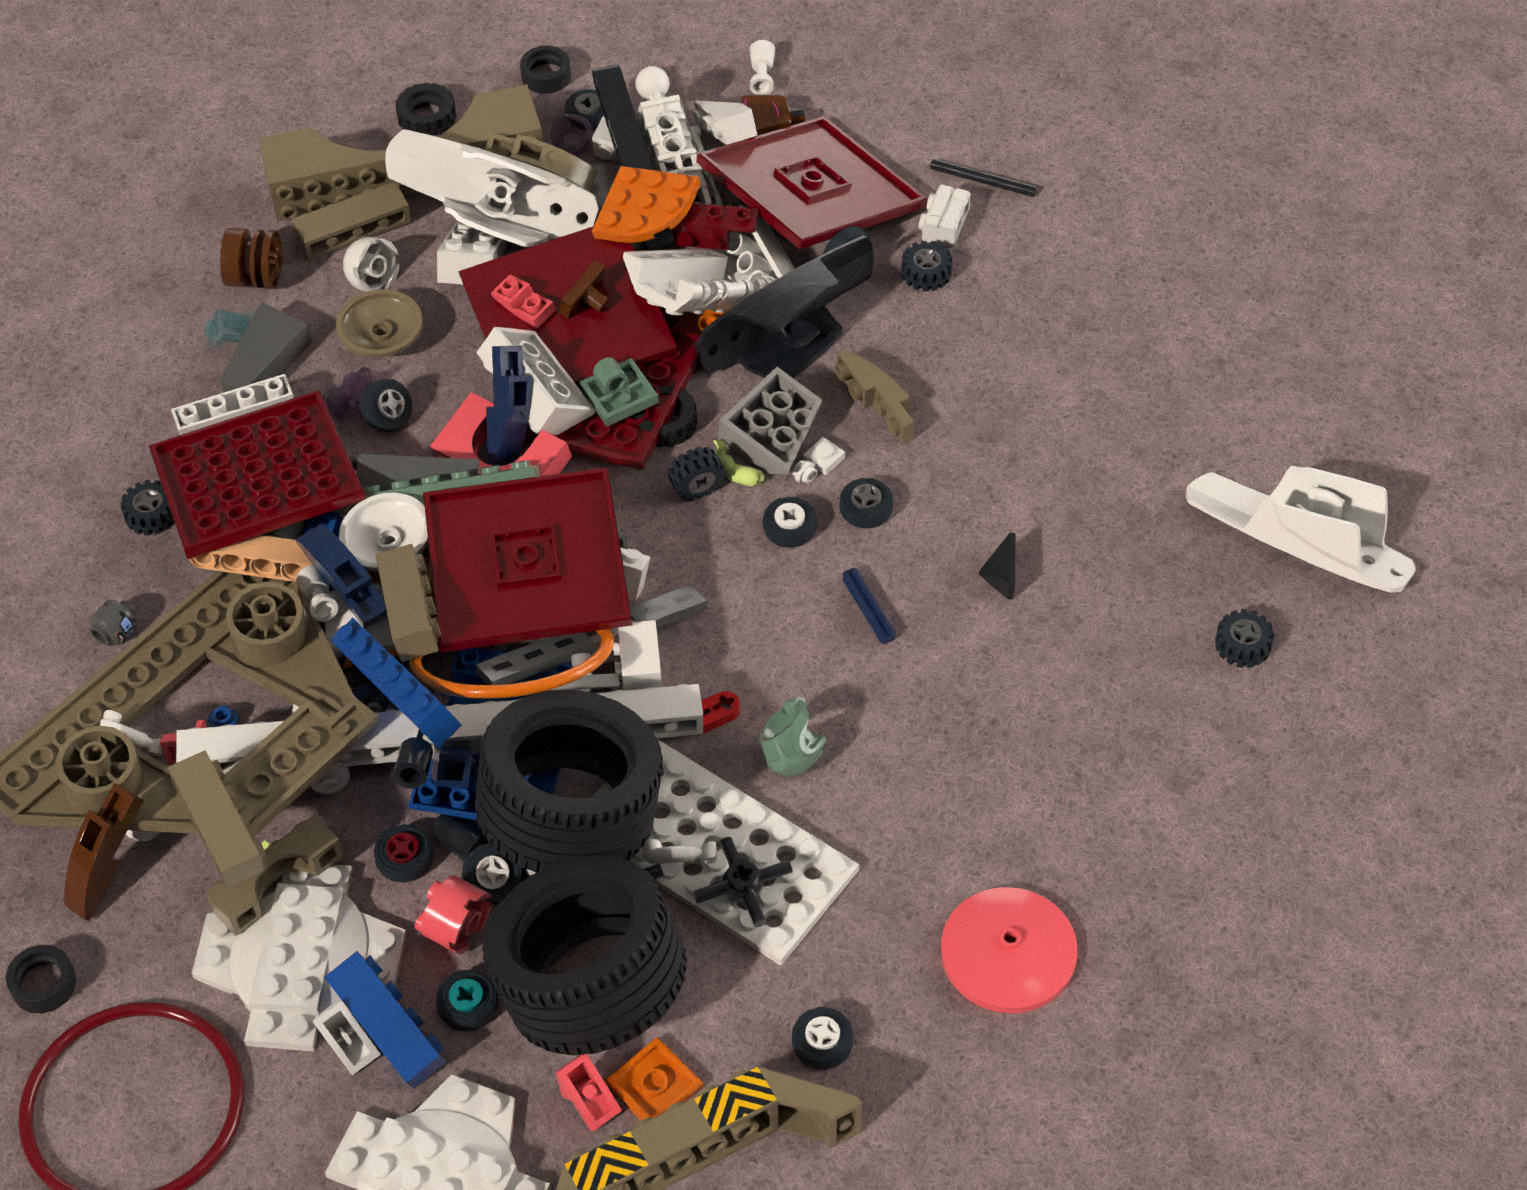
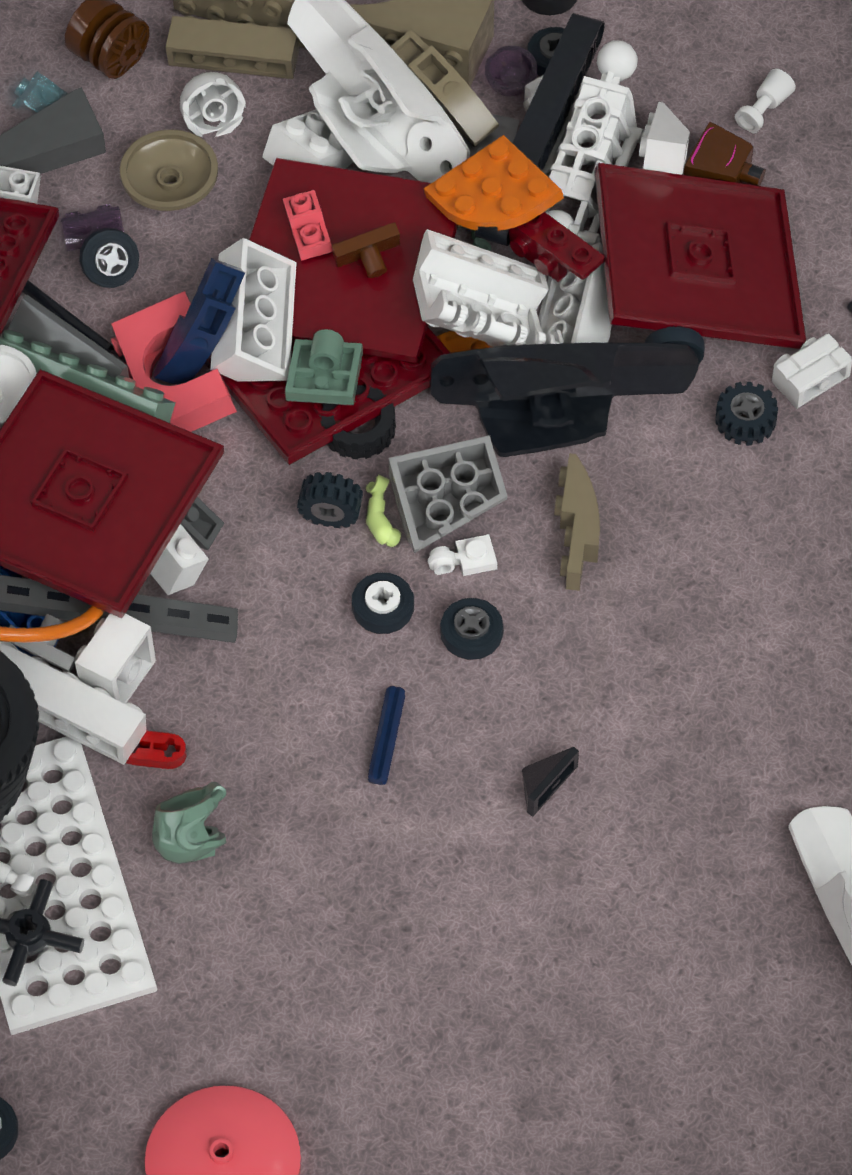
camera: 35 degrees right, 5 degrees up
(1236, 629) = (722, 991): black wheel -> none

